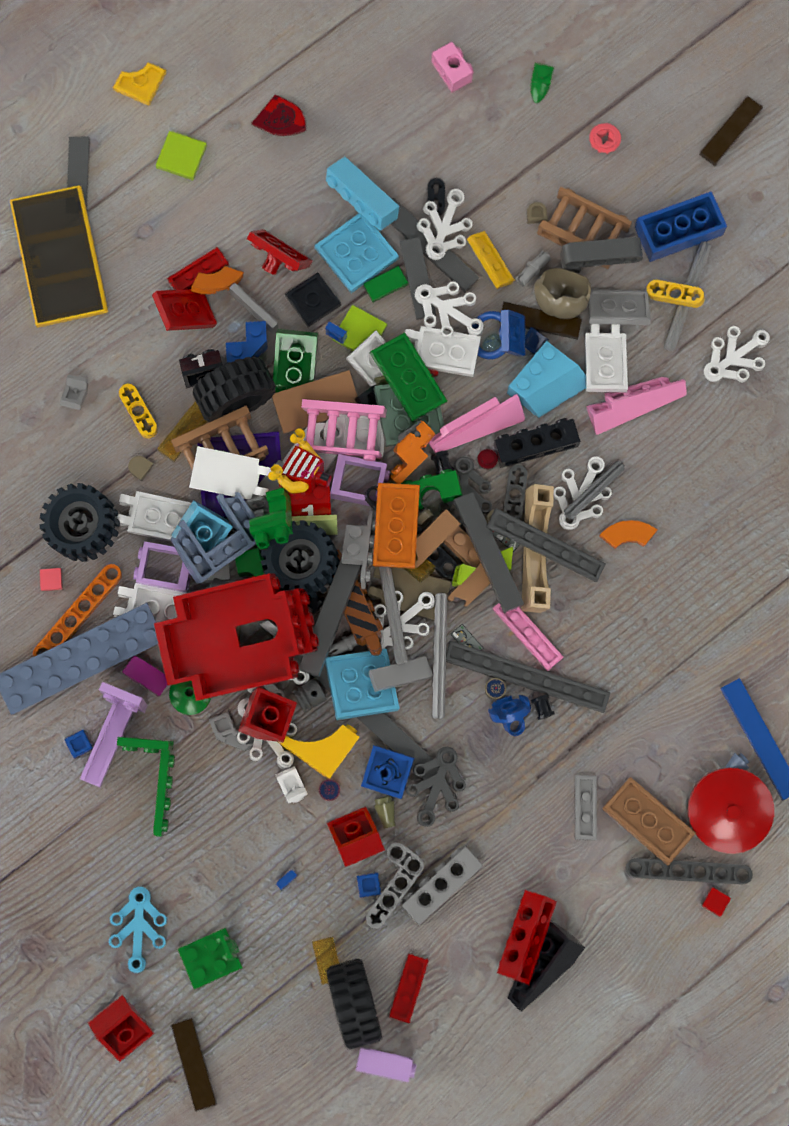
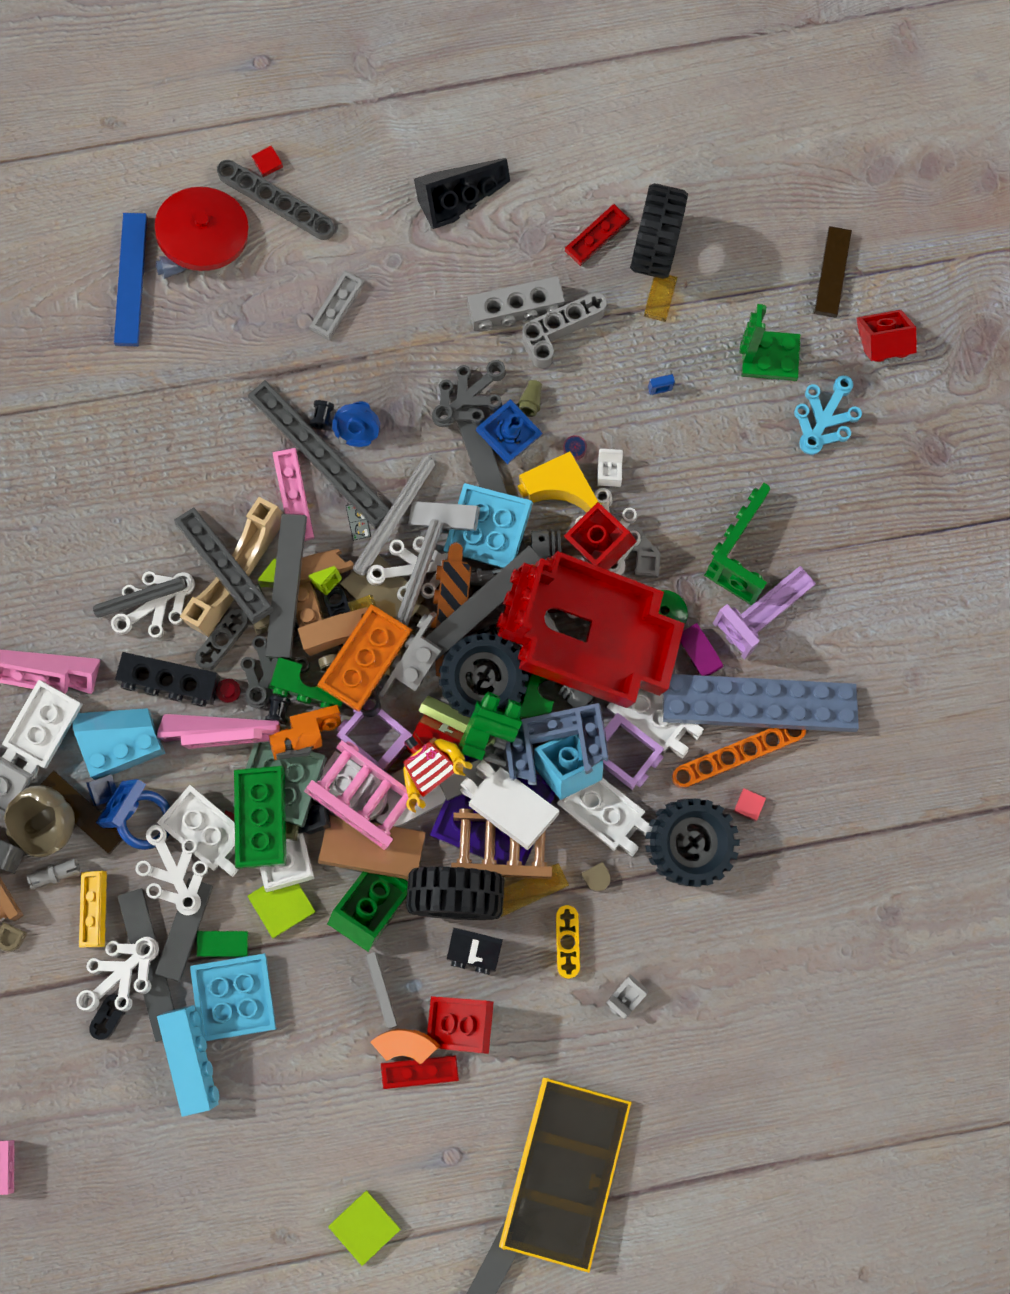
camera: 150 degrees left, 0 degrees up
(78, 744) = (800, 621): blue tile -> none
(255, 343) = (401, 948): blue brick -> none
(278, 252) = (319, 1039): red plate -> none
(281, 118) = (226, 1209): shield -> none
(312, 299) = (311, 969): black tile -> none
(336, 332) = (309, 910): blue tile -> none
(356, 836) = (573, 390): red slope -> none
(368, 885) = (584, 342): blue tile -> none
(385, 1064) = (651, 166): lavender window -> none
(492, 342) = (146, 816): clear light blue piece -> none
(495, 688) = (357, 458): tile -> none
(526, 937) = (451, 217): red brick -> none
(627, 532) = (132, 541): orange tile -> none
(649, 821) = (284, 260): medium nougat tile -> none

